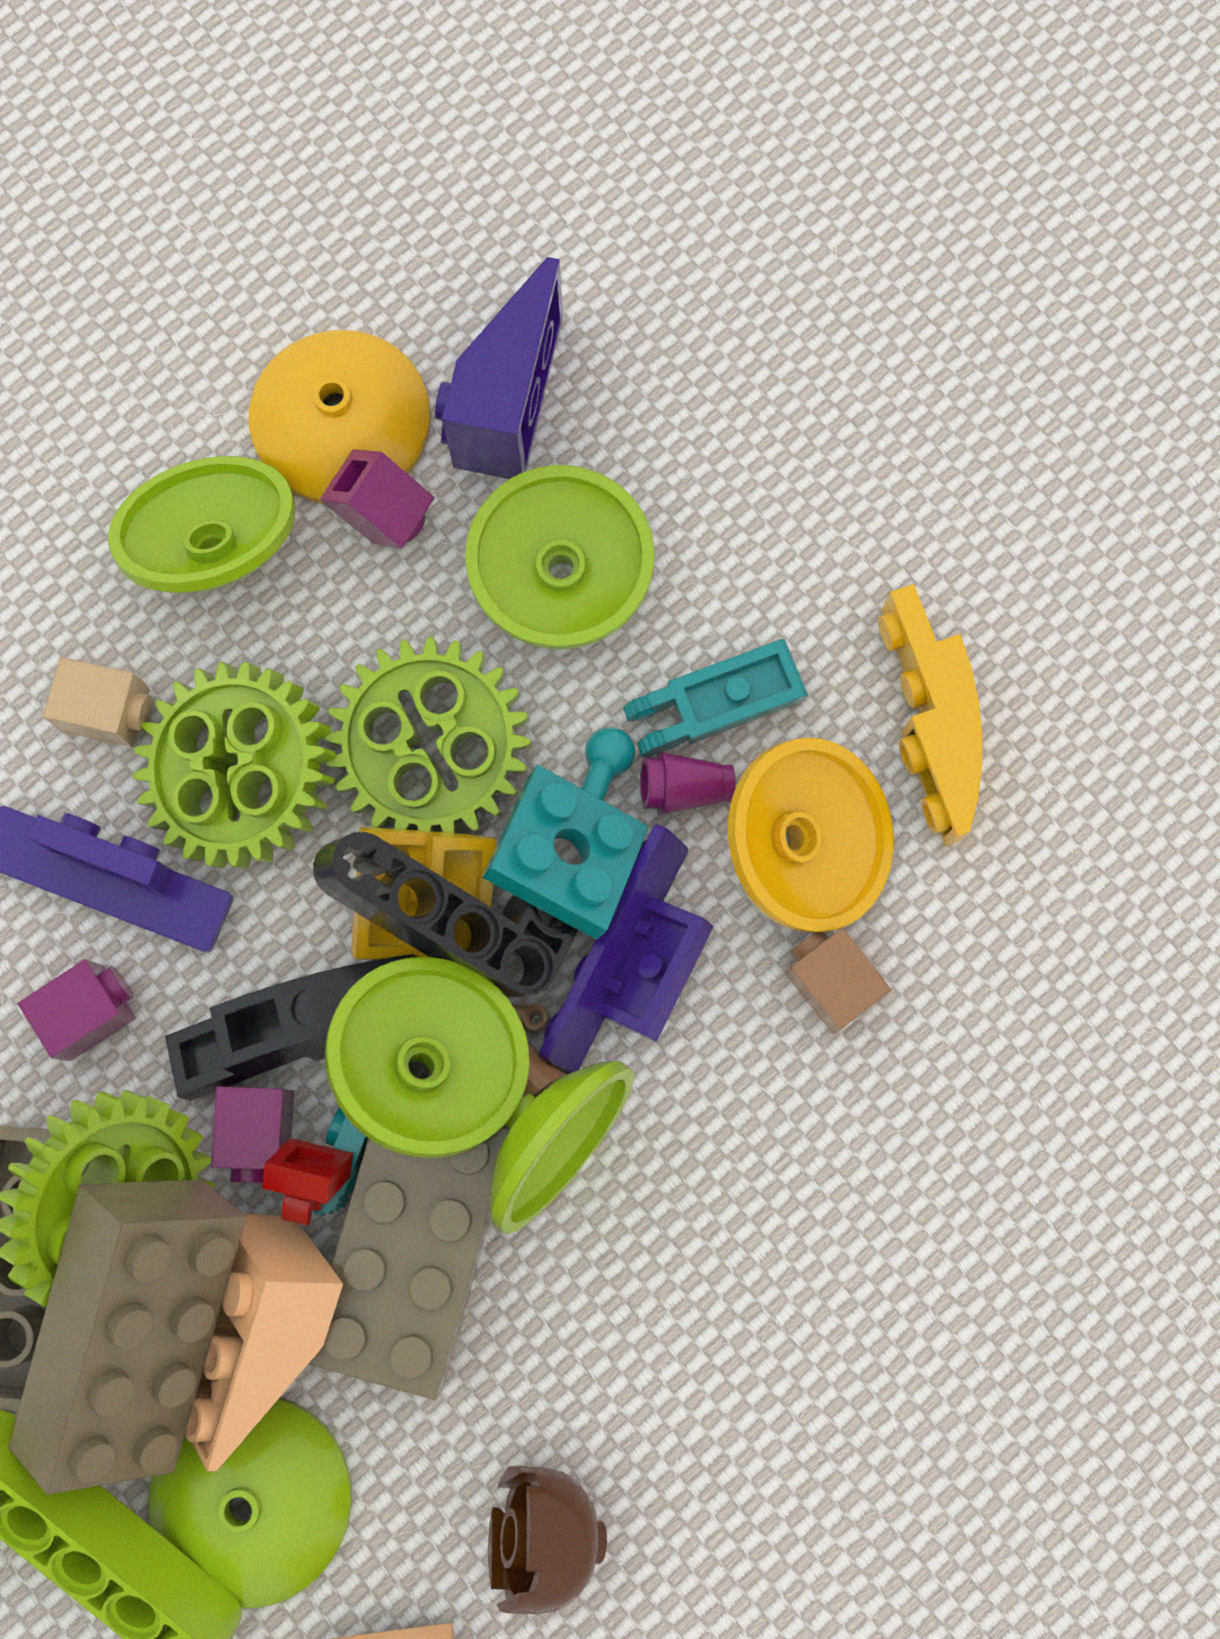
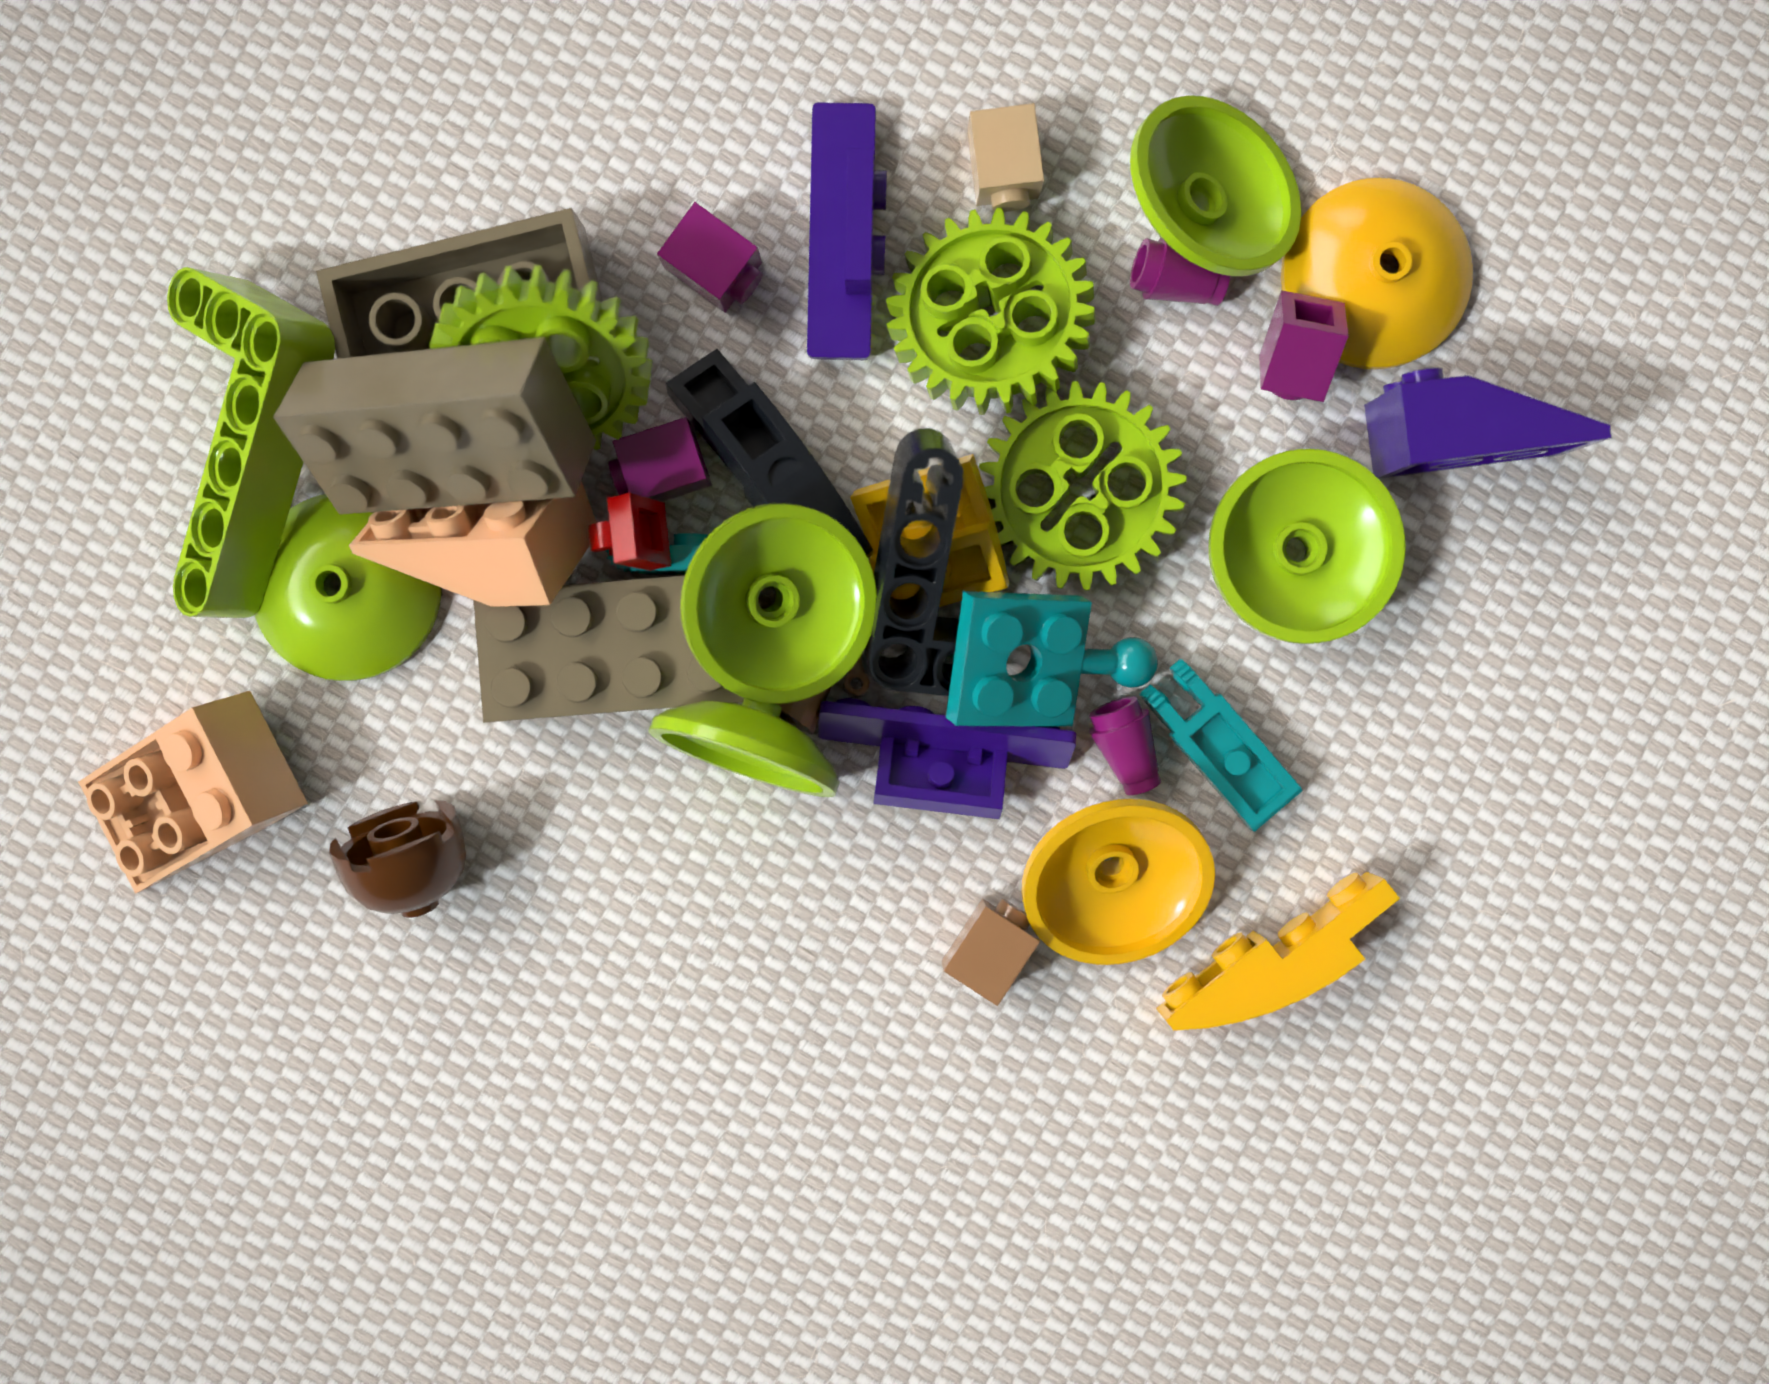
camera: 70 degrees right, 10 degrees up
(268, 592) = (1170, 277): none -> magenta cone

